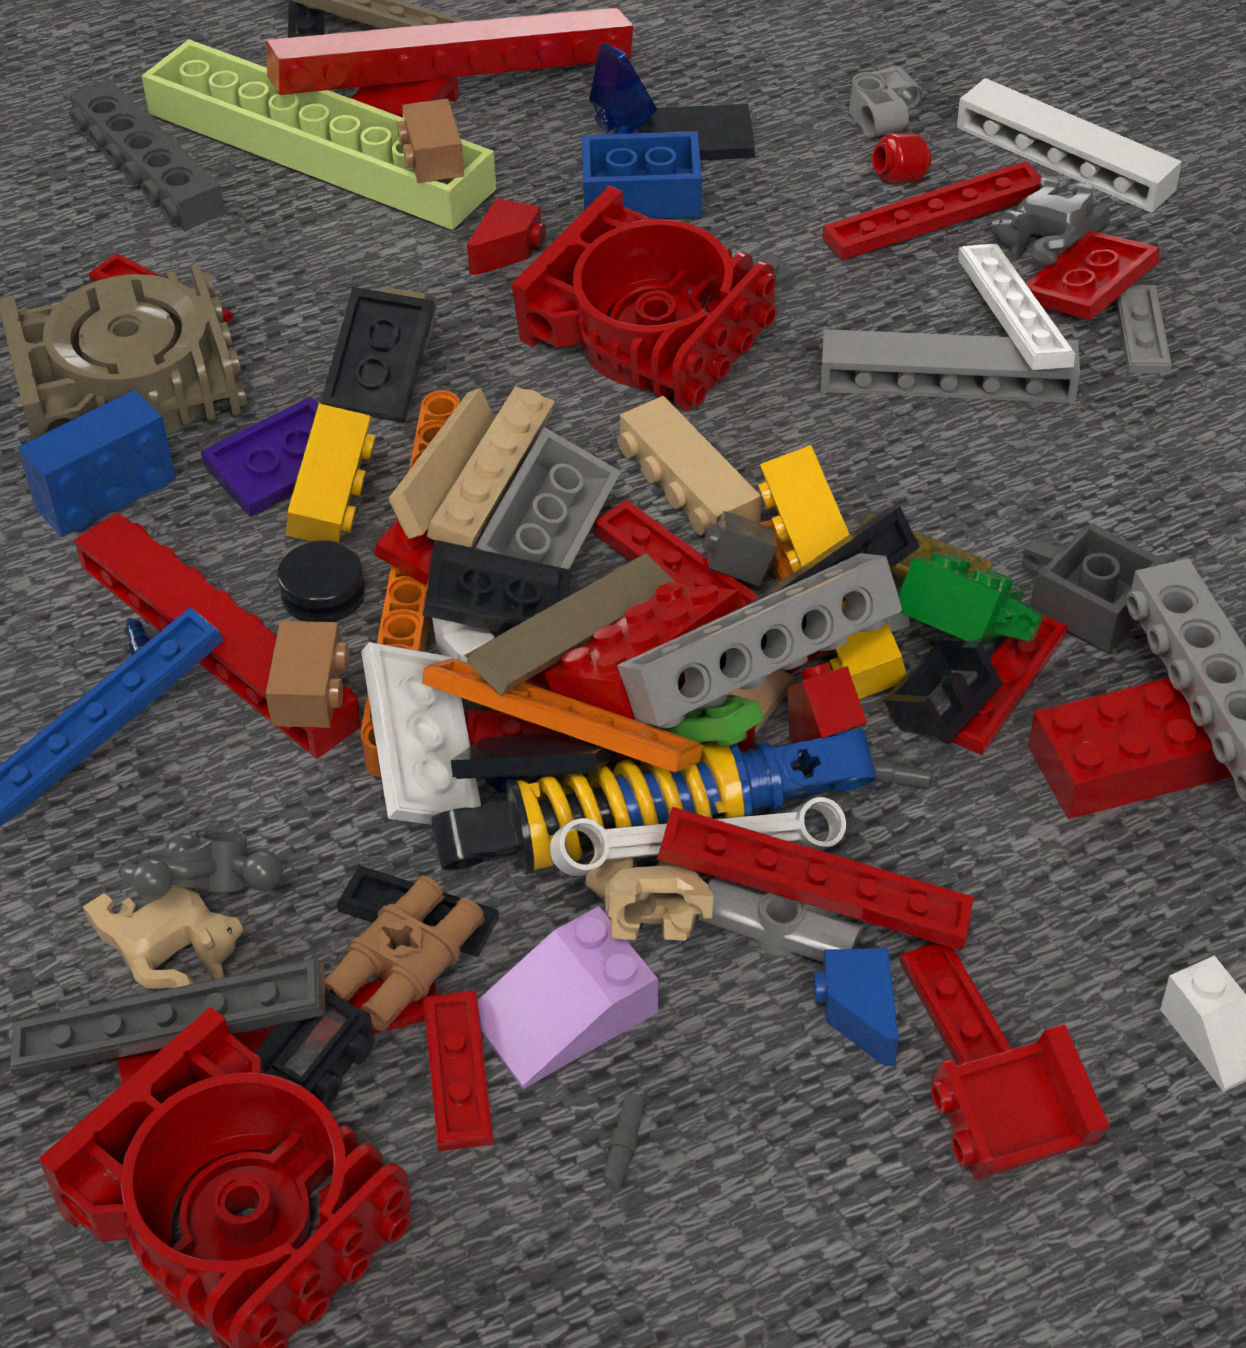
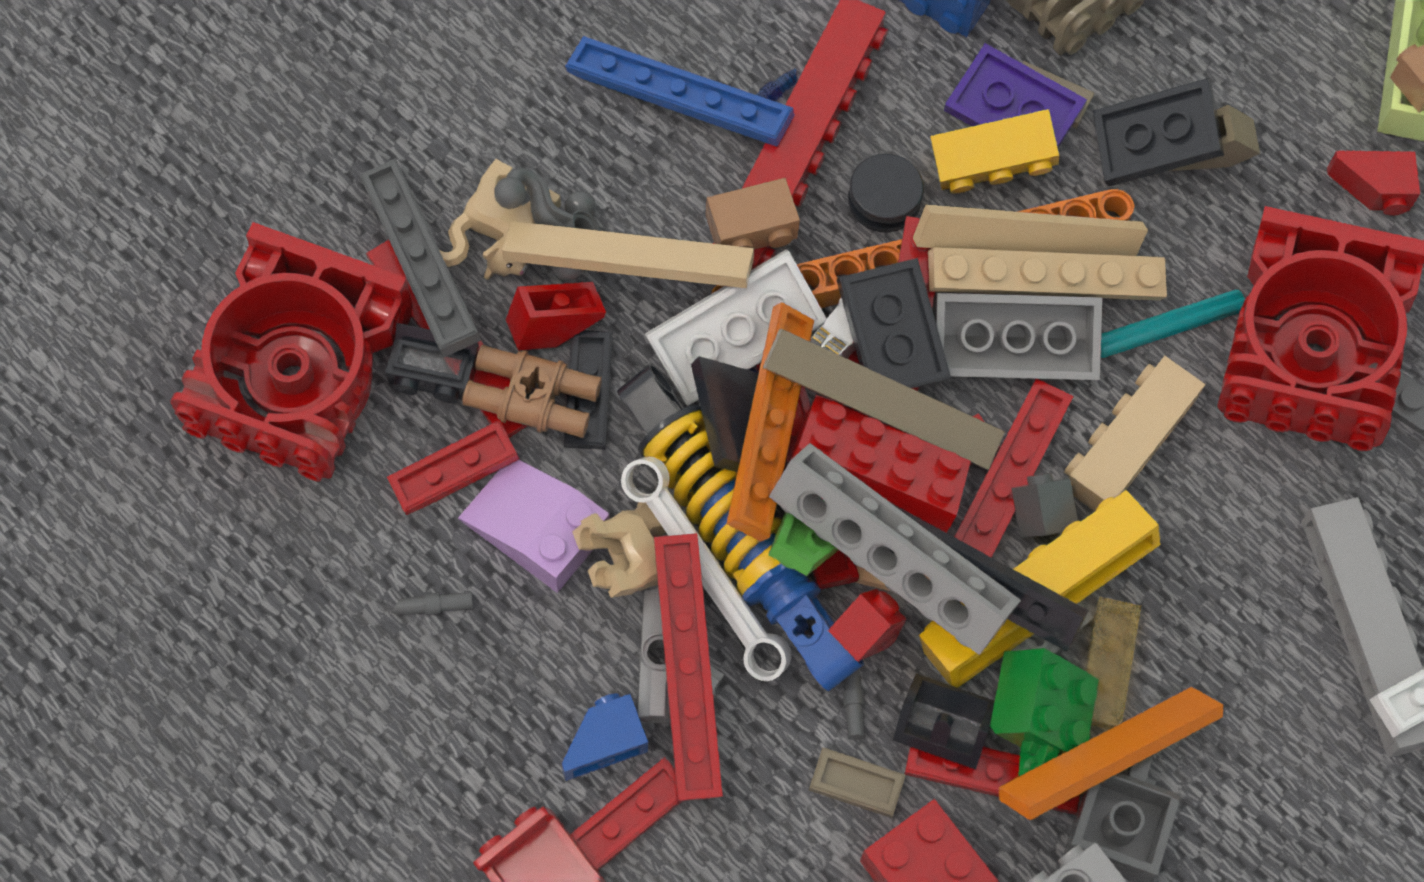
camera: 65 degrees right, 20 degrees up
(287, 796) = (628, 254): none -> tan tile
(313, 907) = (552, 313): none -> red slope
(577, 401) = (1171, 323): none -> teal axle
(981, 794) = (857, 782): none -> dark tan tile
(1031, 562) = (1110, 753): none -> orange tile

